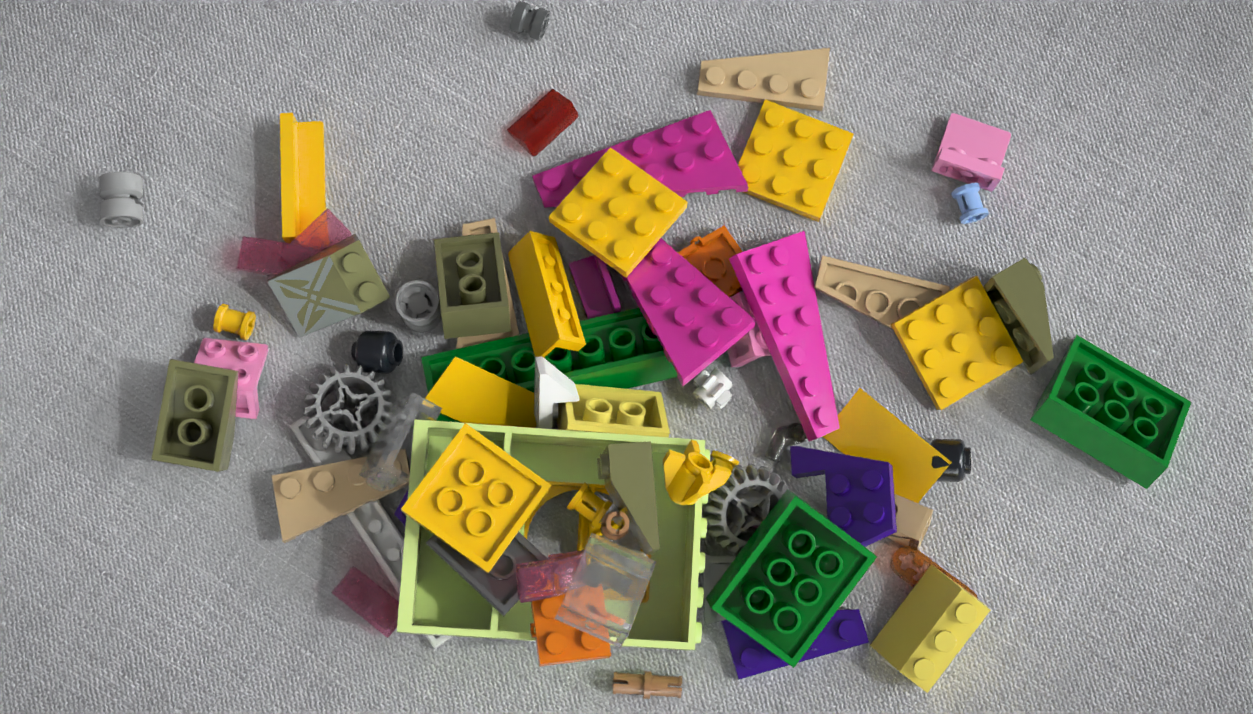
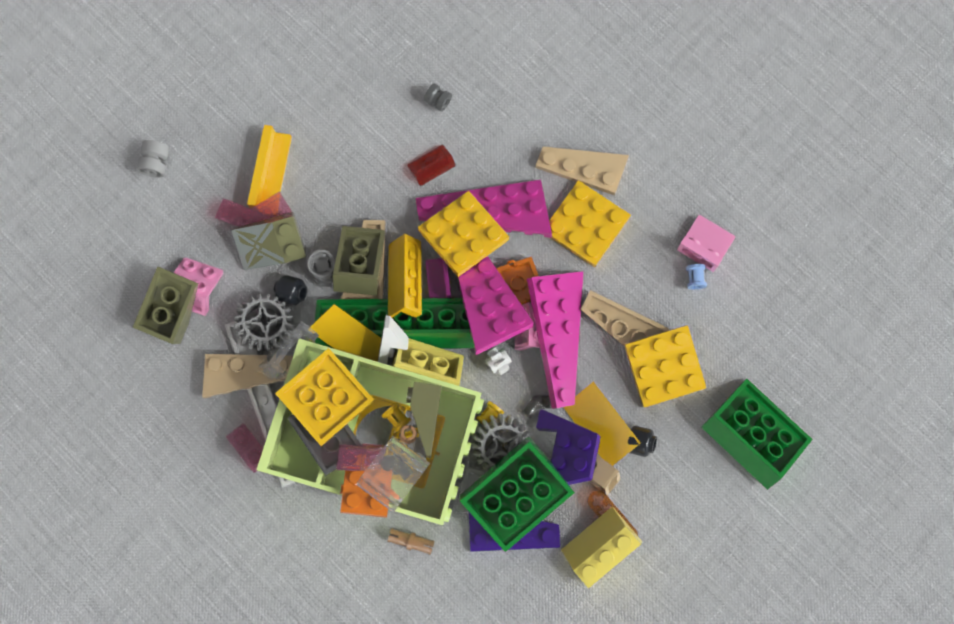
camera: 20 degrees right, 0 degrees up
(234, 321) = (205, 251): yellow bush -> none
(691, 475) = (465, 413): yellow brick -> none
(1022, 307) = (711, 350): olive slope -> none

